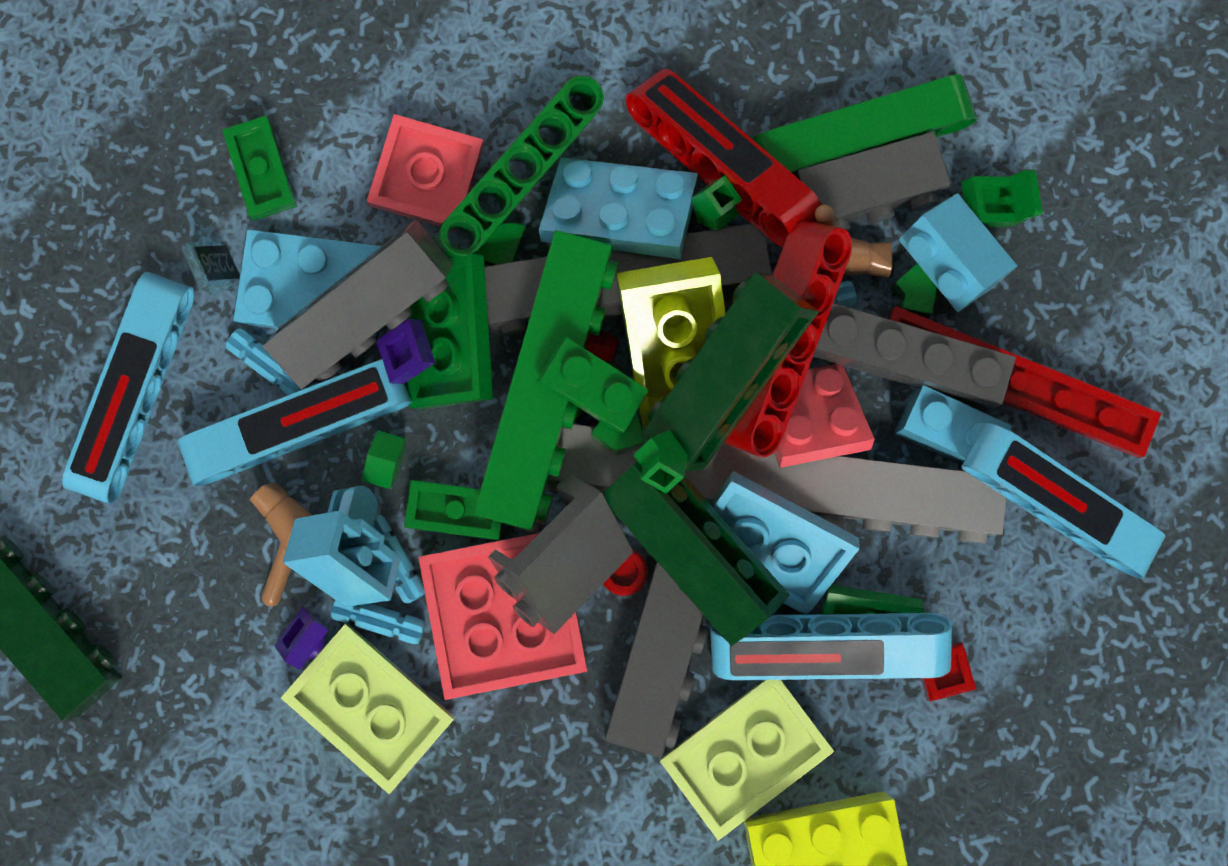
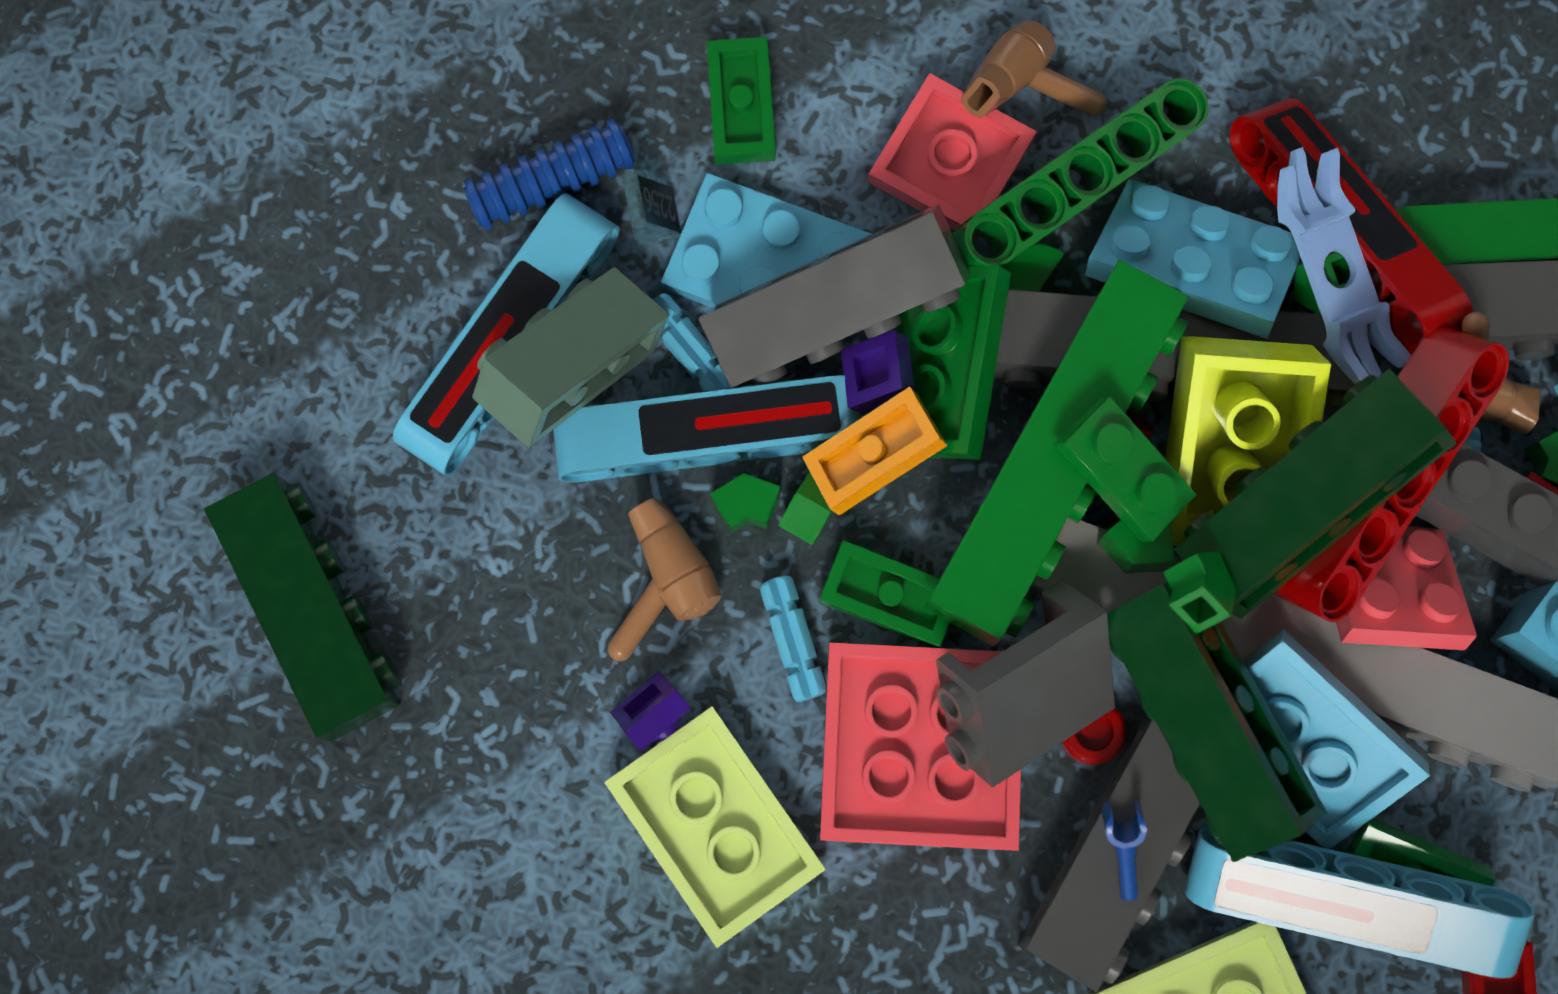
camera: 15 degrees right, 5 degrees down
(129, 260) = (549, 174): none -> blue piece
(174, 396) = (568, 355): none -> sand green brick
(335, 467) = (746, 501): none -> green piece
(344, 551) = (740, 609): medium azure brick -> none
(380, 621) = (754, 712): medium azure axle -> none
(414, 412) = (874, 451): none -> light orange plate
(458, 89) = (1021, 61): none -> medium nougat piece
(655, 647) = (1126, 838): none -> blue hand
(737, 221) = (1322, 226): none -> light blue piece

